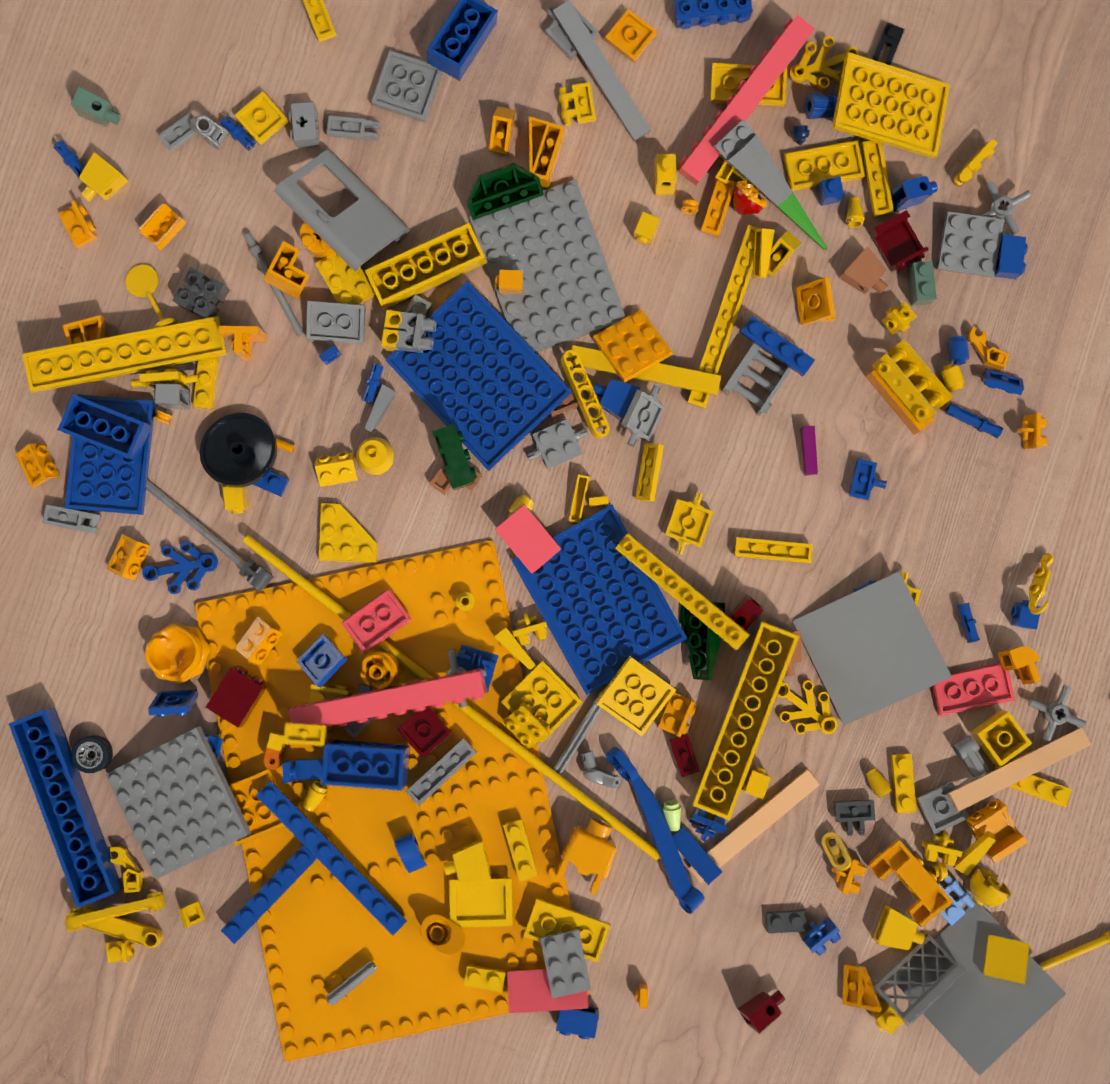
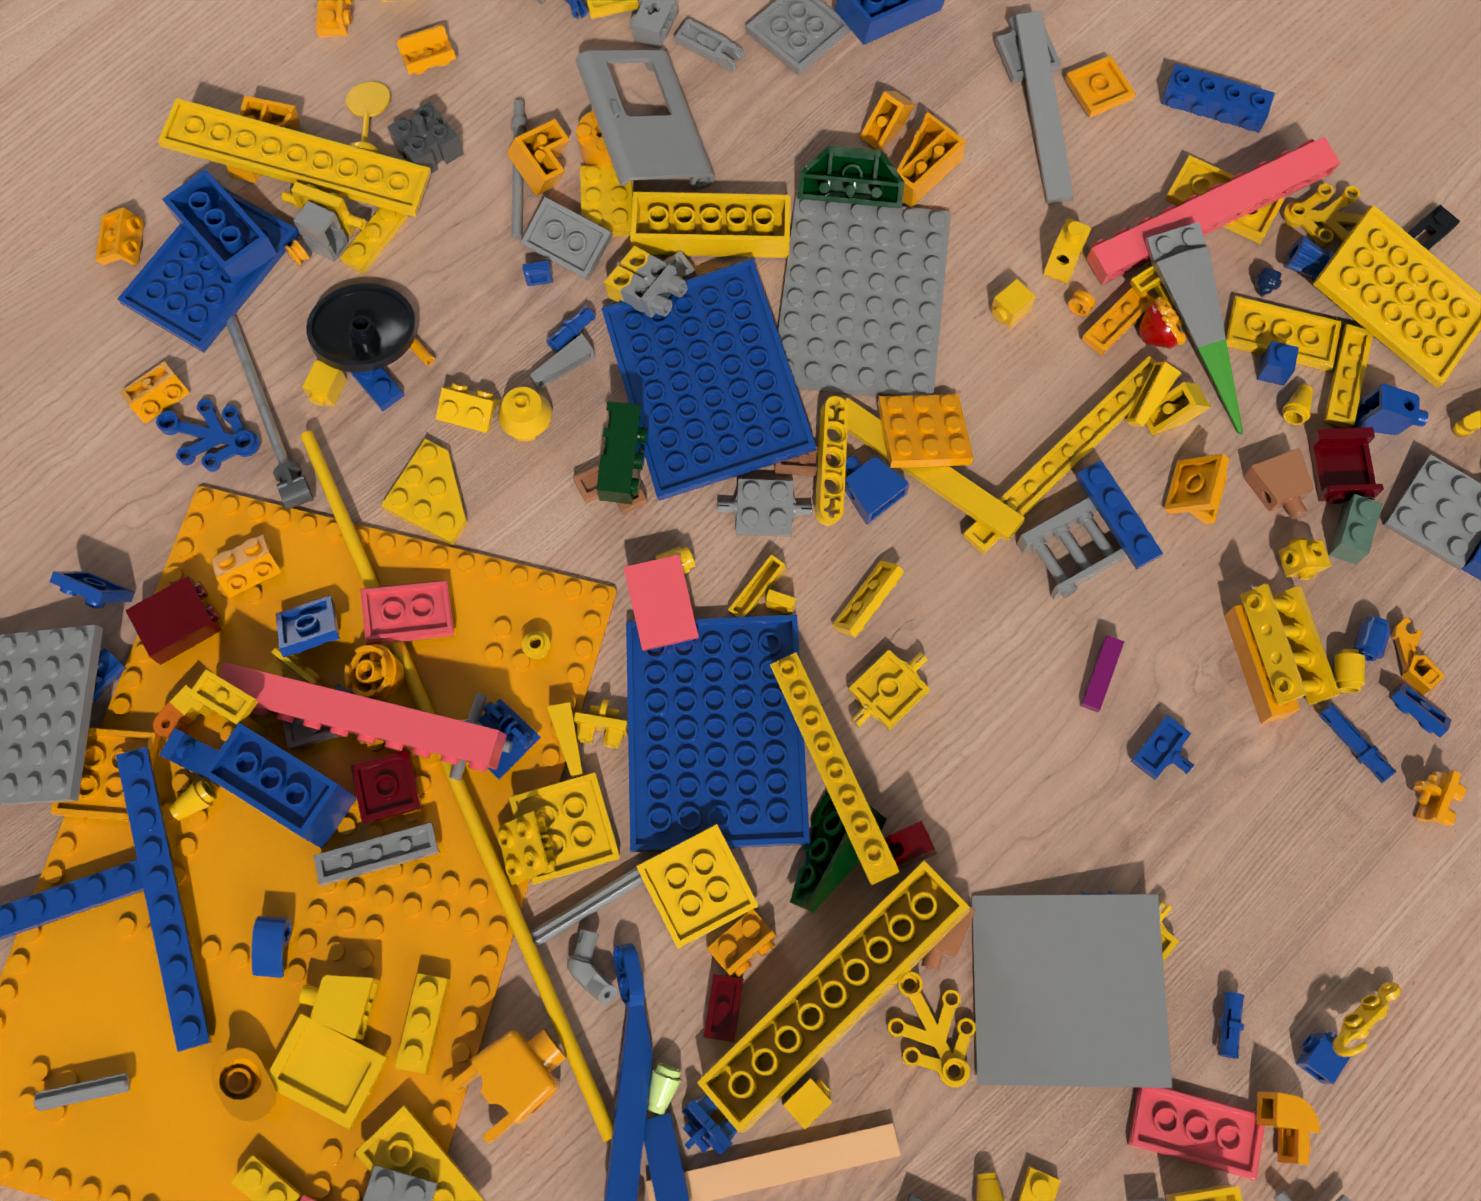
camera: 30 degrees right, 15 degrees down
(70, 519) = (116, 316): light grey plate -> none
(177, 653) = (135, 531): light orange piece -> none
(241, 339) = (444, 205): light orange bracket -> none
(510, 281) = (805, 284): light orange brick -> none
(583, 103) = (1003, 133): yellow plate -> none
(643, 415) = (895, 521): light grey plate -> none
(773, 550) = (990, 782): yellow plate -> none

